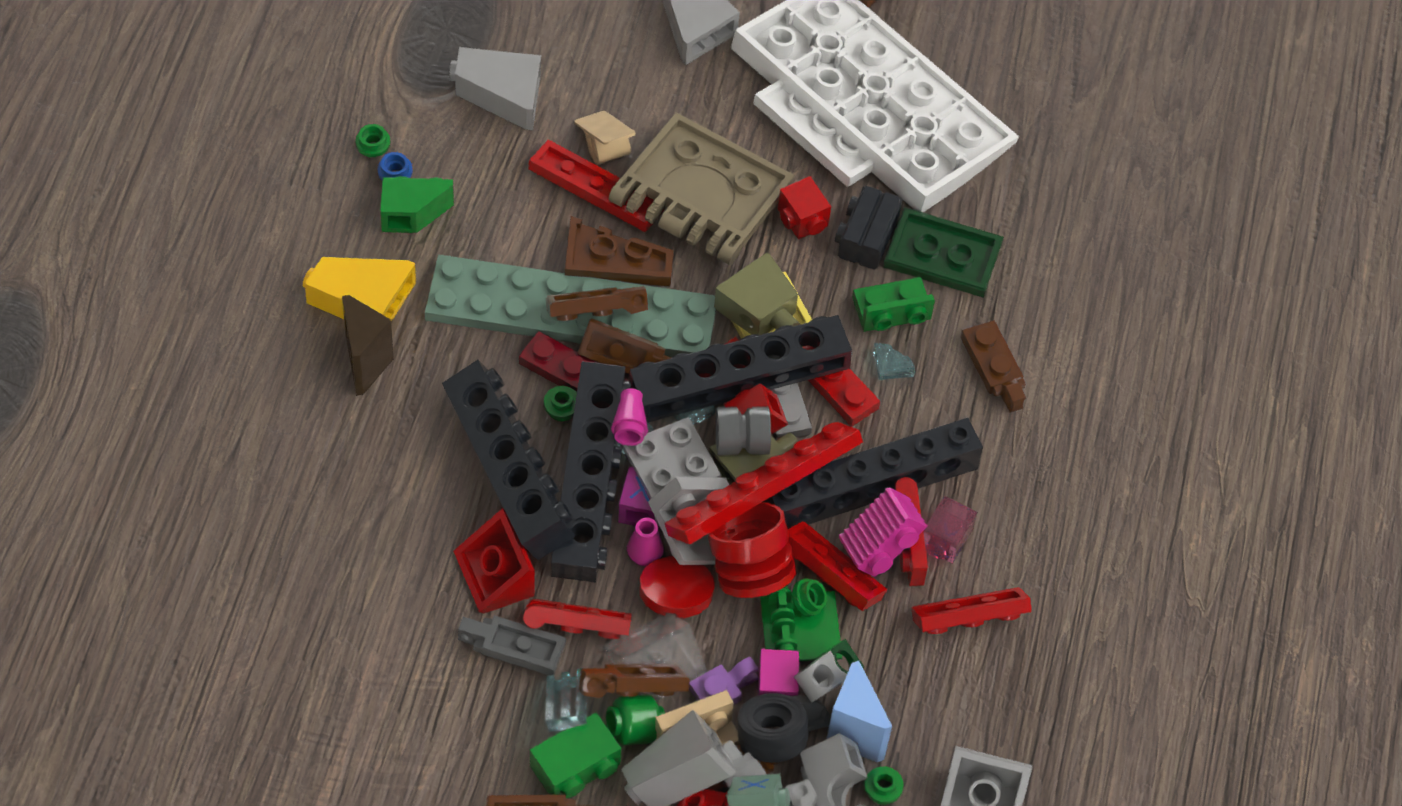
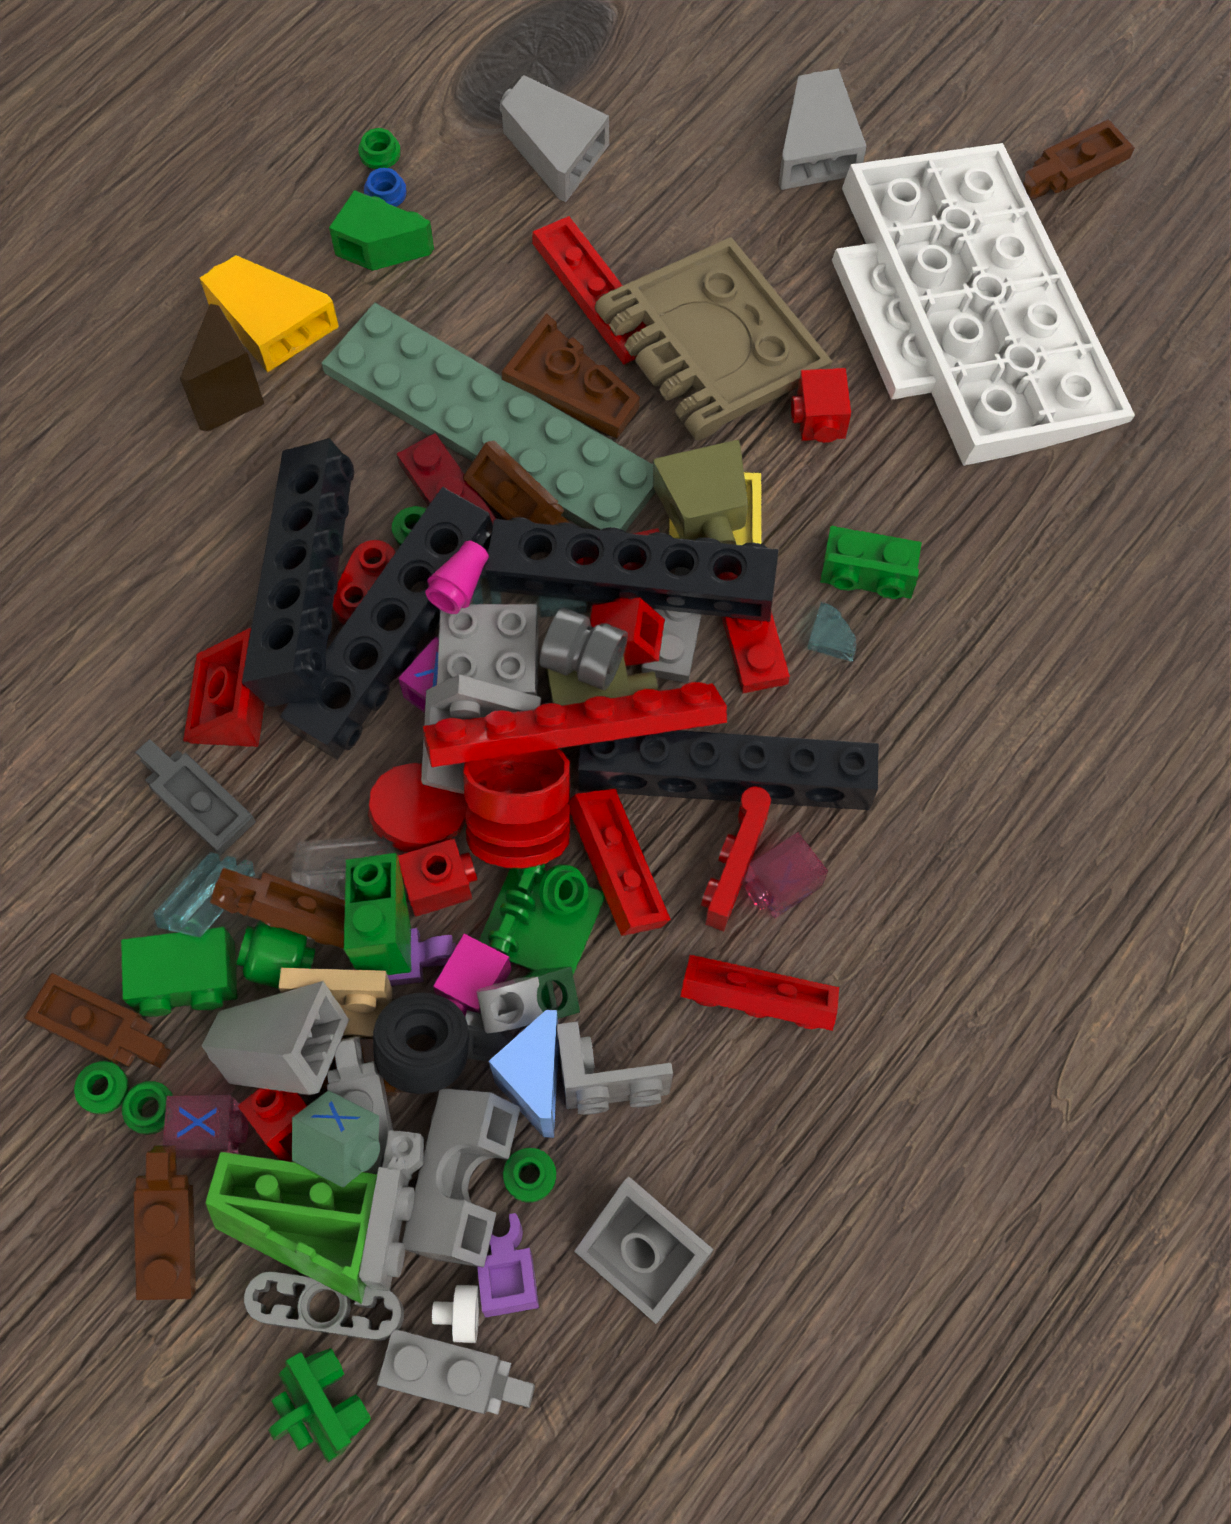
camera: 30 degrees right, 10 degrees up
(551, 449) = (360, 576): none -> red plate
(575, 618) = (280, 797): red plate -> none
(599, 302) = (512, 424): reddish brown hinge -> none
(605, 136) = (636, 237): tan piece -> none
(645, 542) = (407, 737): dark pink cone -> none
(699, 657) = (377, 915): none -> green slope
(717, 625) = (437, 876): none -> red brick
(869, 227) = (889, 456): black brick -> none
(882, 532) = (694, 847): dark pink brick -> none
(911, 702) = (594, 1091): none -> light grey bracket
(943, 252) = (968, 522): dark green tile -> none
(995, 363) = (960, 685): reddish brown hinge -> none

